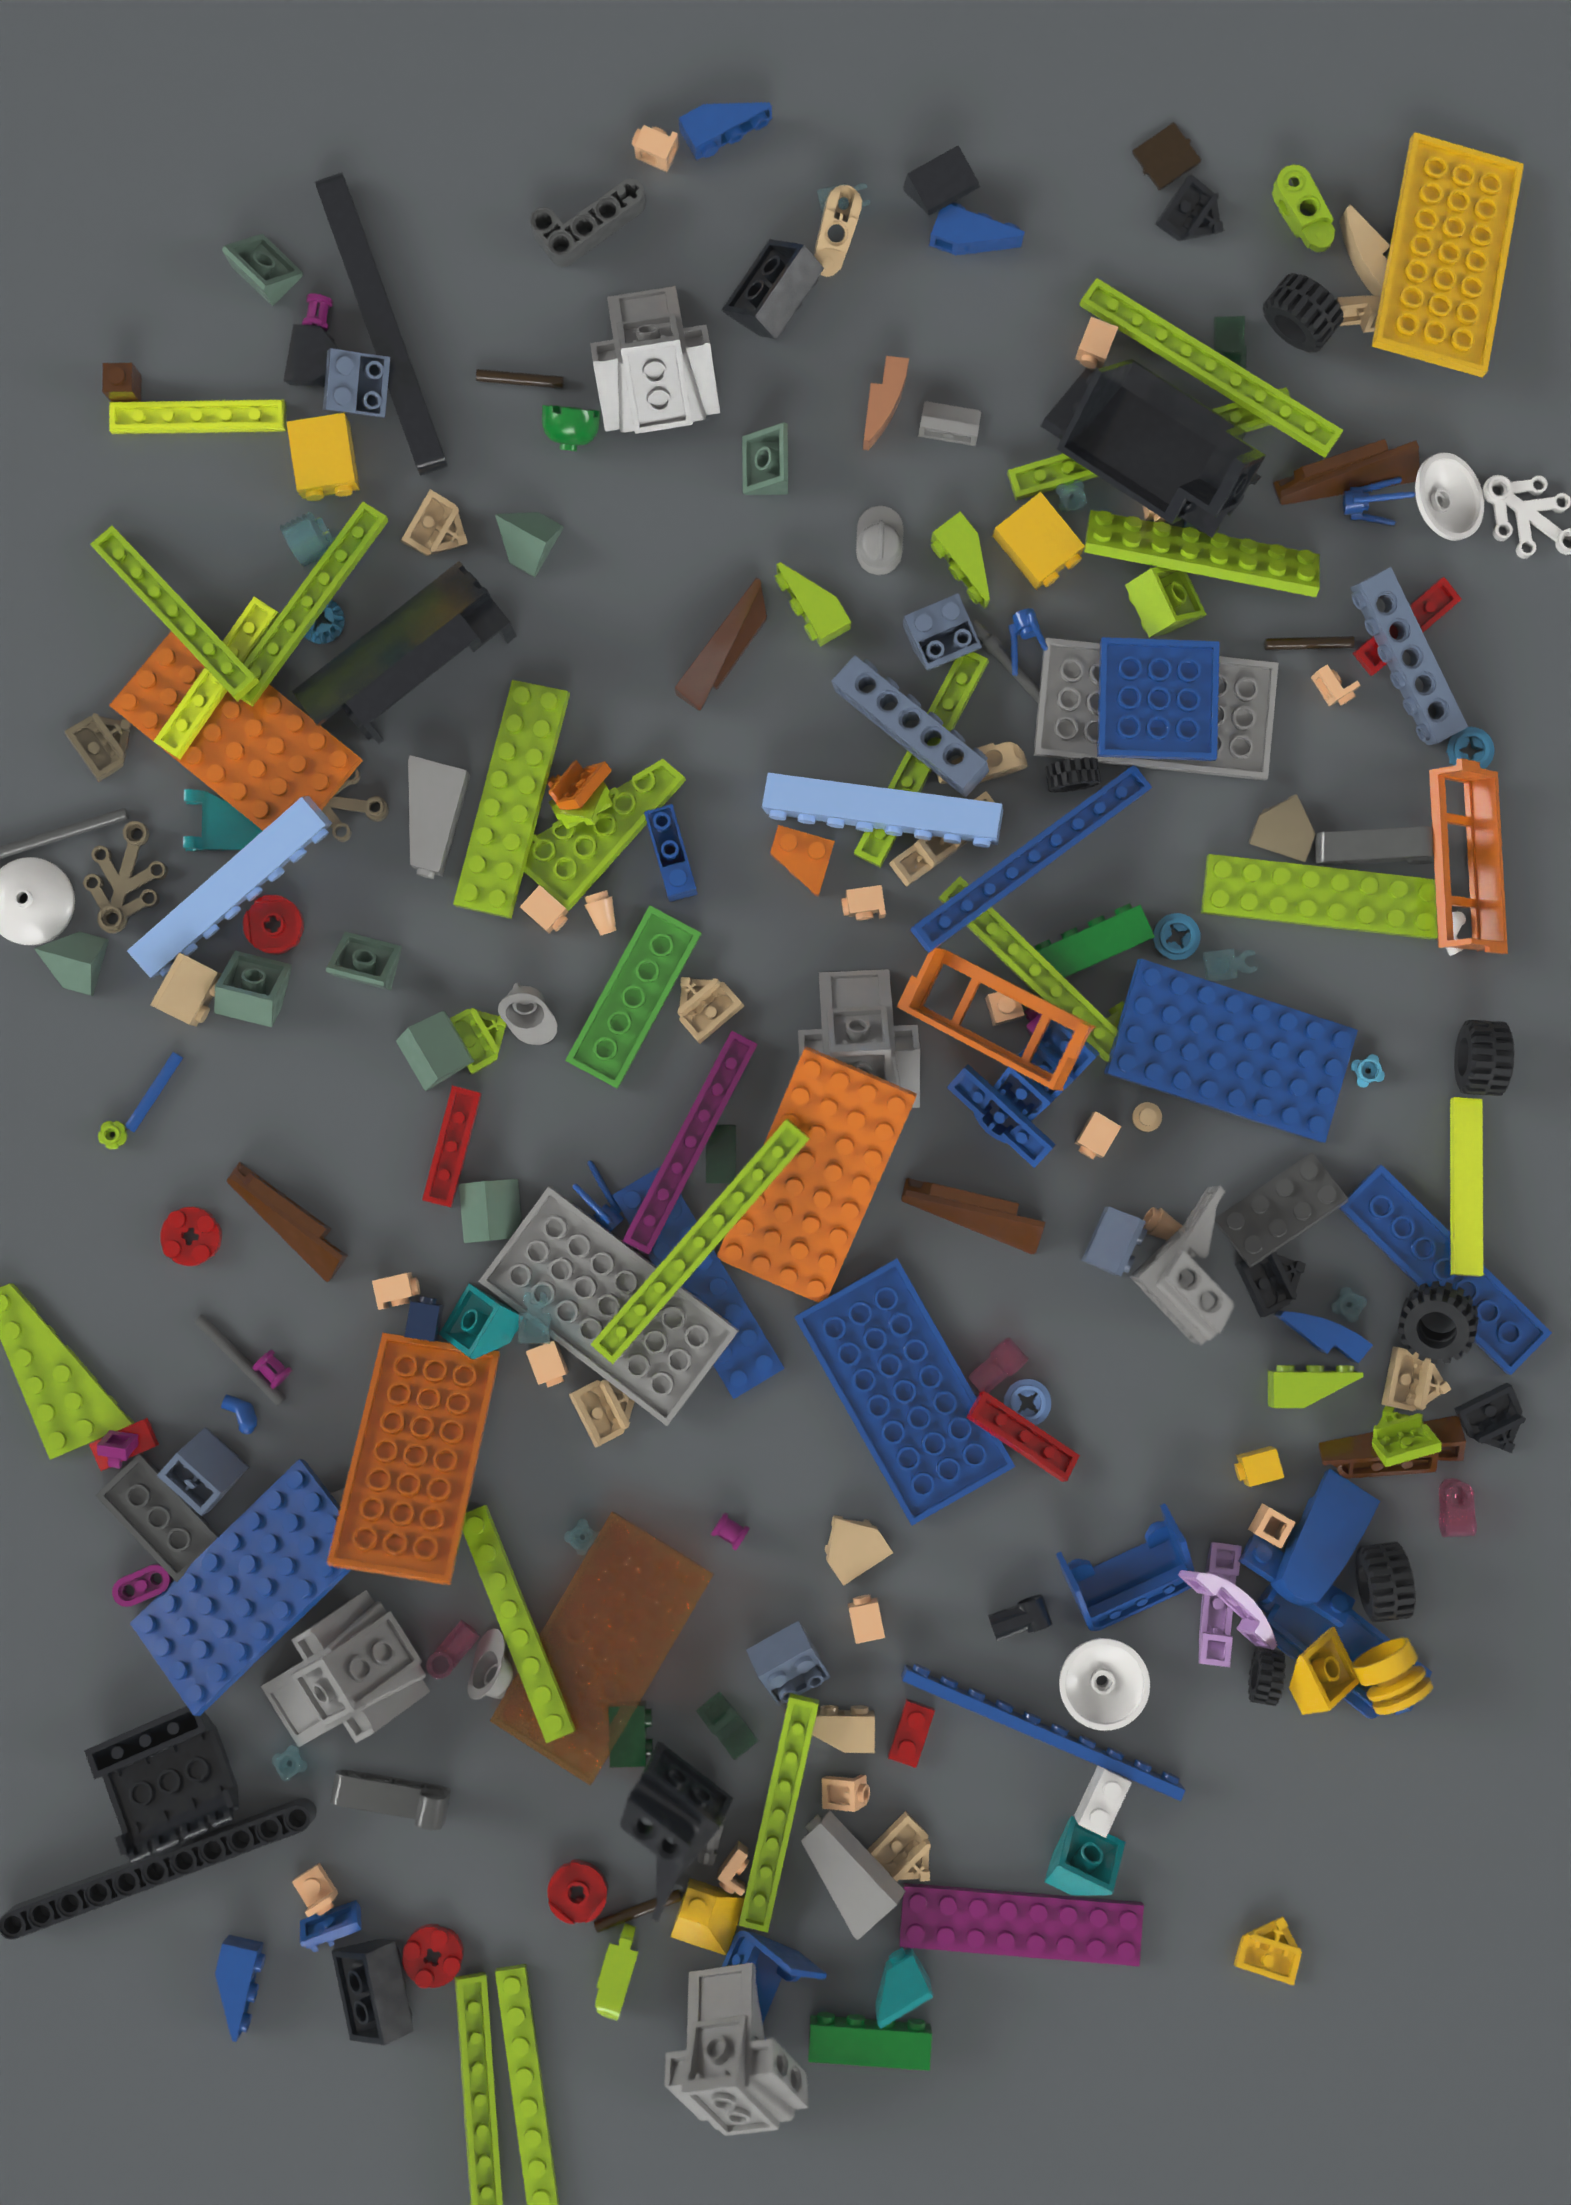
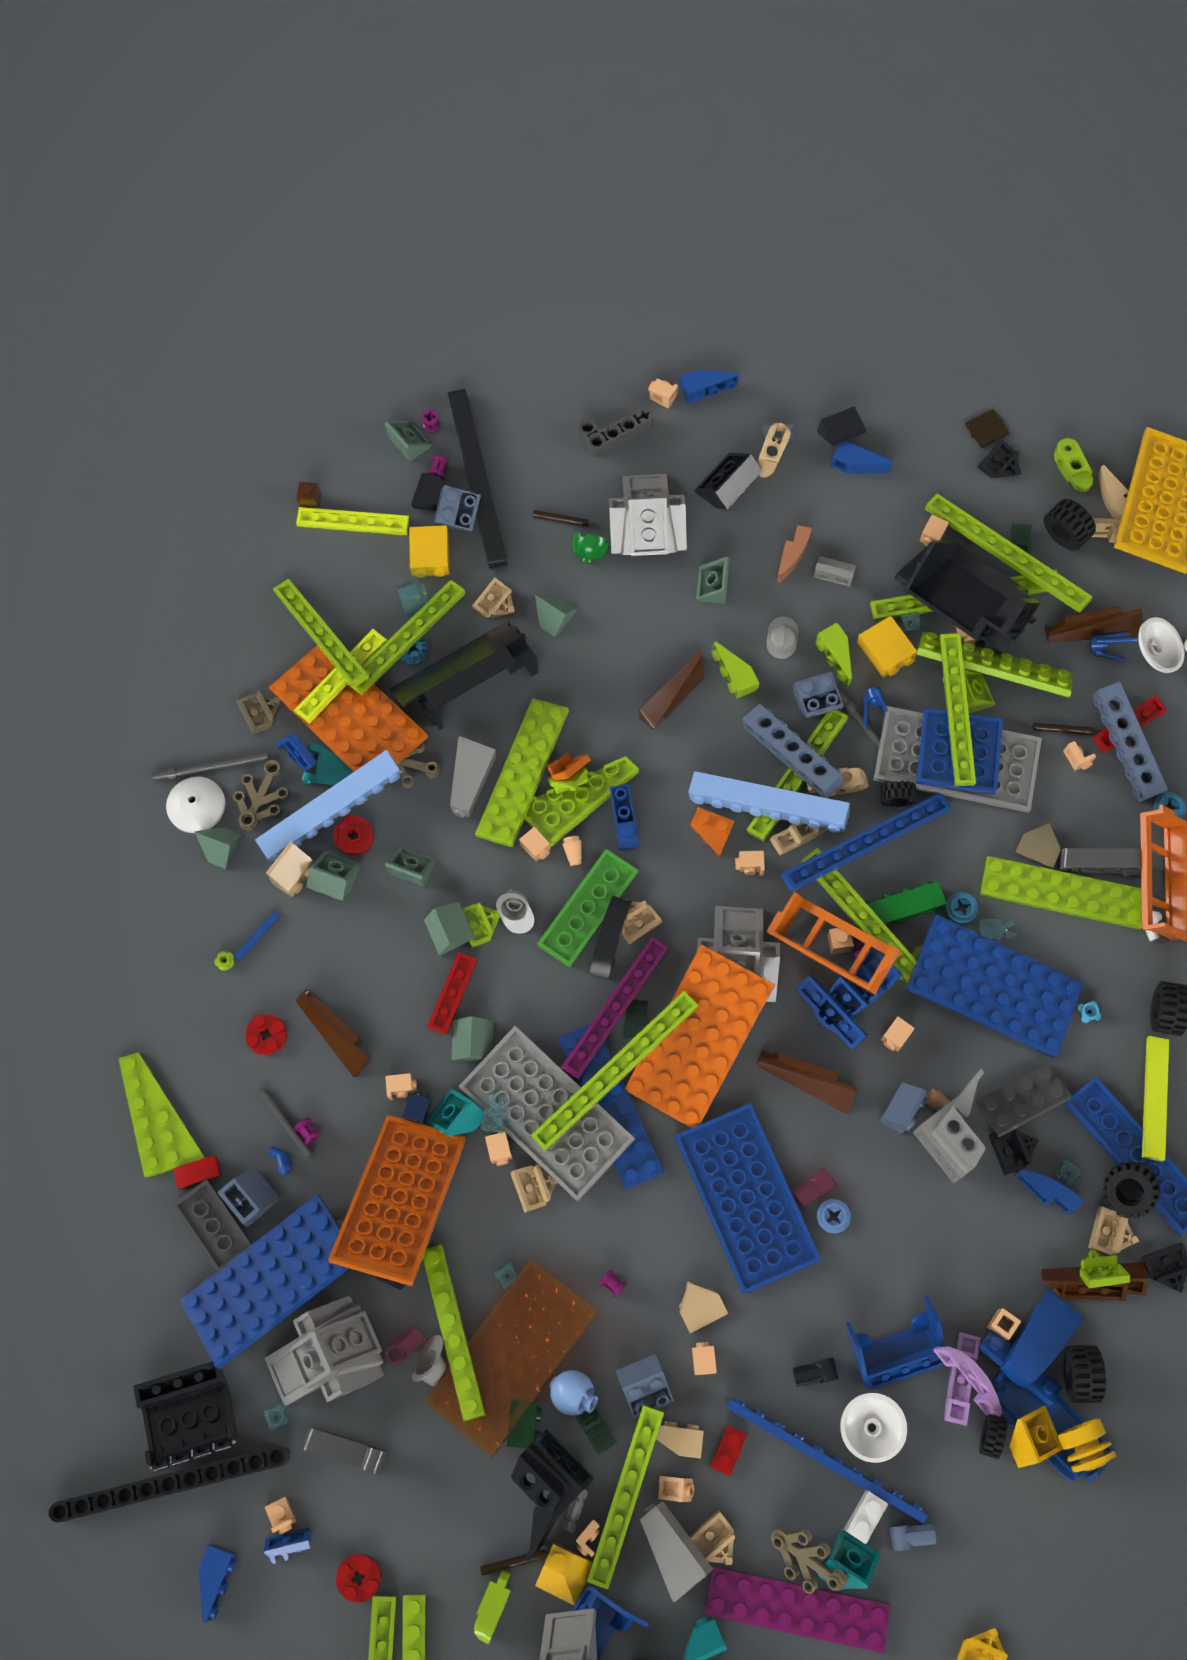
camera: 10 degrees right, 15 degrees down
(117, 1447) = (193, 1171): magenta tile -> none
(143, 1584) = (193, 1272): magenta plate -> none
(168, 805) = (298, 752): none -> blue wing
(288, 232) = (426, 418): none -> magenta bush
(373, 1991) = (311, 1599): black slope -> none
(575, 1874) = (484, 1541): red plate -> none
(606, 1215) = (551, 1051): blue plant -> none
(670, 1037) = (609, 937): none -> black slope
(691, 1687) = (573, 1393): none -> light blue brick
(998, 1844) = (784, 1540): none -> dark tan plant
(1023, 1436) = (829, 1238): red plate -> none
(1147, 1117) = (933, 1026): tan plate -> none
(1151, 636) = (957, 710): none -> lime plate
(1158, 1817) = (906, 1537): none -> sand blue piece
(1259, 1466) = (997, 1281): yellow brick -> none
(1304, 1387) = (1028, 1227): lime slope -> none
(1457, 1513) = (1140, 1332): clear pink piece -> none

